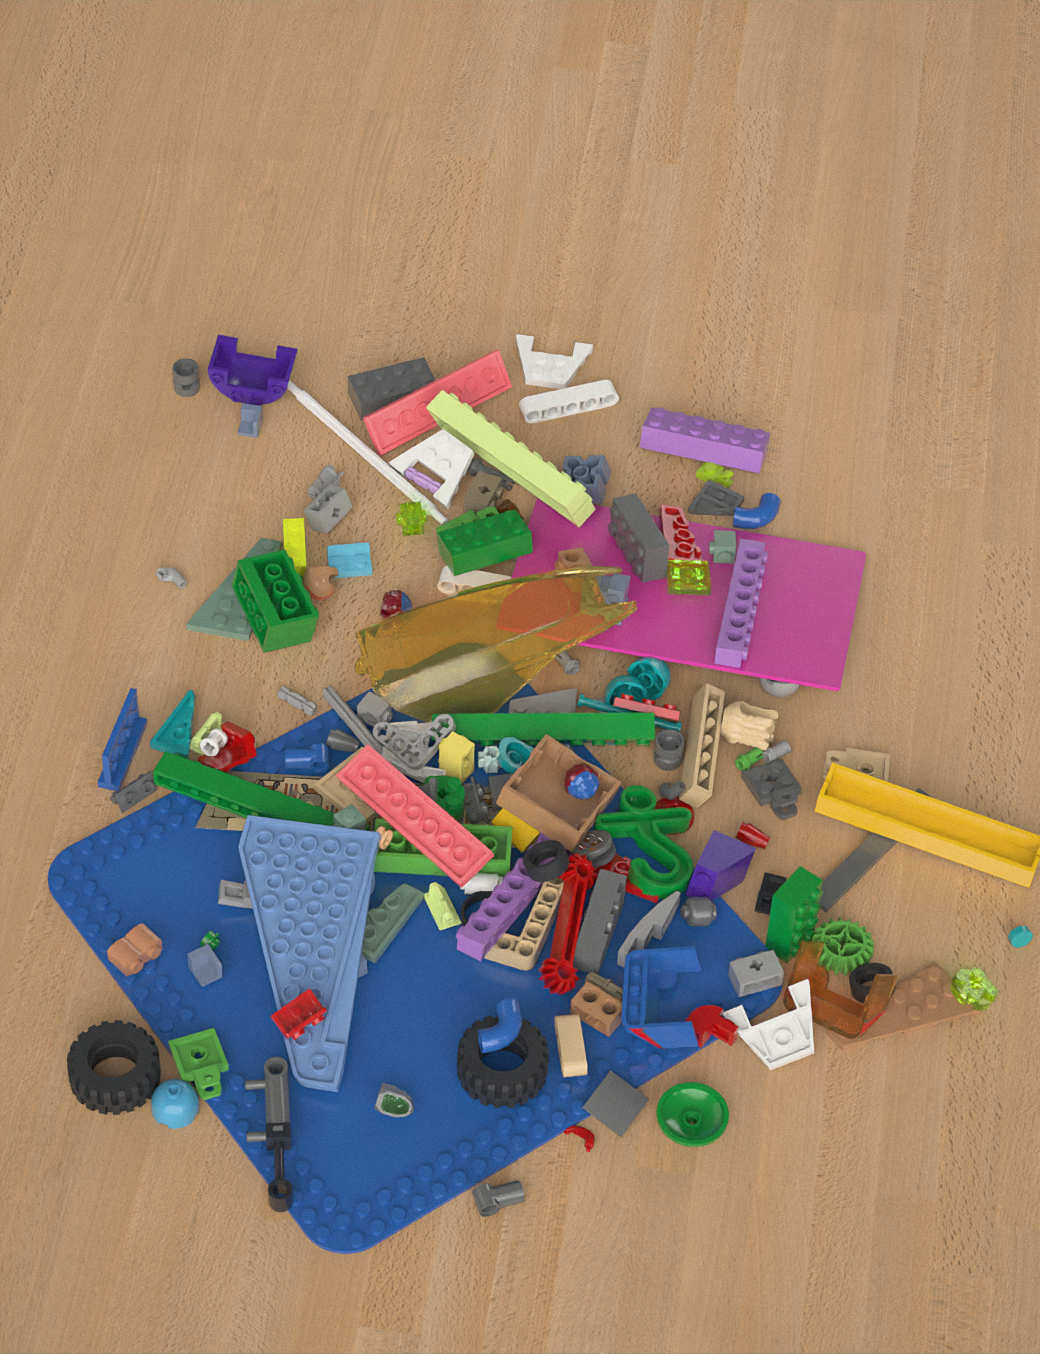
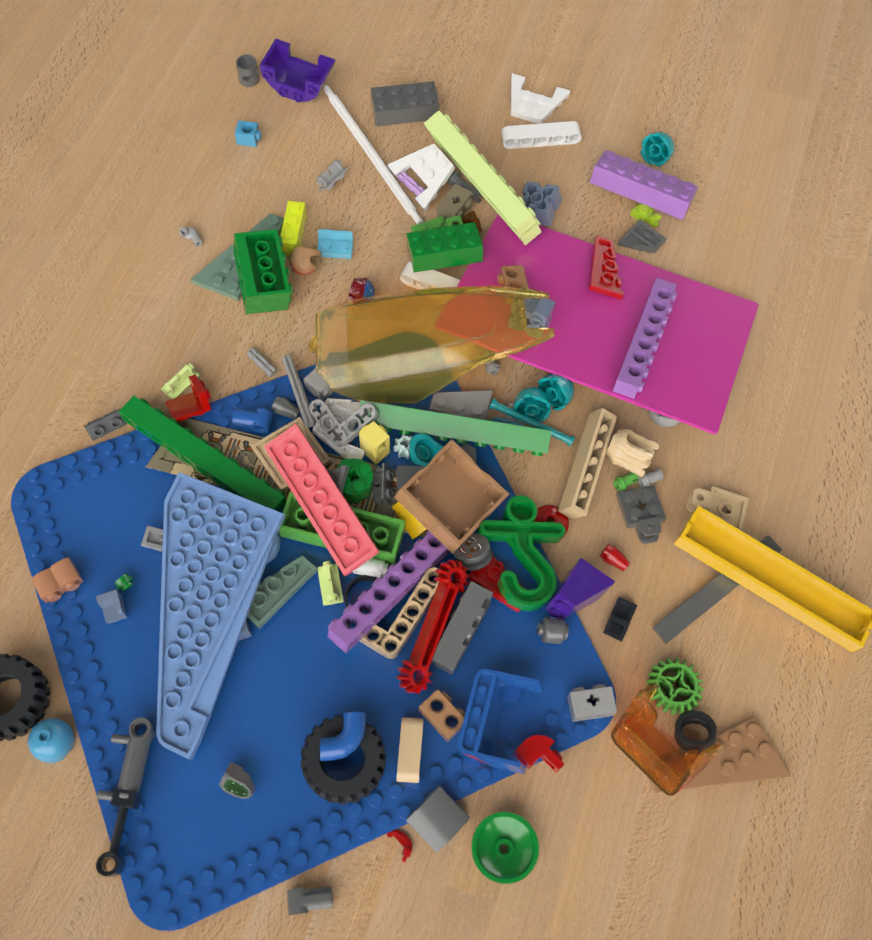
camera: 10 degrees right, 15 degrees up
(122, 744) = (104, 387): blue fence -> none
(177, 730) = (155, 374): teal wing -> none
(205, 1070) = (76, 715): bright green plate -> none
(207, 451) = (247, 133): none -> dark azure brick
(211, 745) = (182, 389): white bush -> none
(250, 420) = (289, 114): sand blue panel -> none
(299, 1014) = (171, 681): red bracket -> none
(328, 508) = (328, 197): light grey brick -> none
(349, 818) = (263, 494): sand green brick -> none
(386, 837) = (290, 514): light nougat bush -> none
(409, 514) = (392, 215): clear neon green brick -> none
(410, 418) = (409, 129): coral plate -> none
(542, 851) = (428, 577): black tyre -> none
(581, 781) = (473, 489): blue piece -> none
(607, 985) = (454, 692): dark tan axle -> none
(638, 538) = (571, 264): dark grey brick -> none
(647, 706) = (548, 421): wing -> none
(651, 925) = (509, 636): light grey slope -> none
(668, 750) = (558, 462): dark grey wheel -> none
(669, 792) = (553, 502): dark grey arm -> none
(688, 577) = (606, 305): clear neon green plate -> none
(713, 396) = (657, 148): none -> teal cylinder
(723, 547) = (641, 281): sand green brick -> none
(759, 516) = (675, 257): blue cylinder -> none
(783, 1037) = (602, 776): white wing -> none
(794, 914) = (638, 657): green brick -> none
(983, 991) = (790, 743): clear neon green plate -> none
(1020, 936) = (837, 704): teal tile -> none

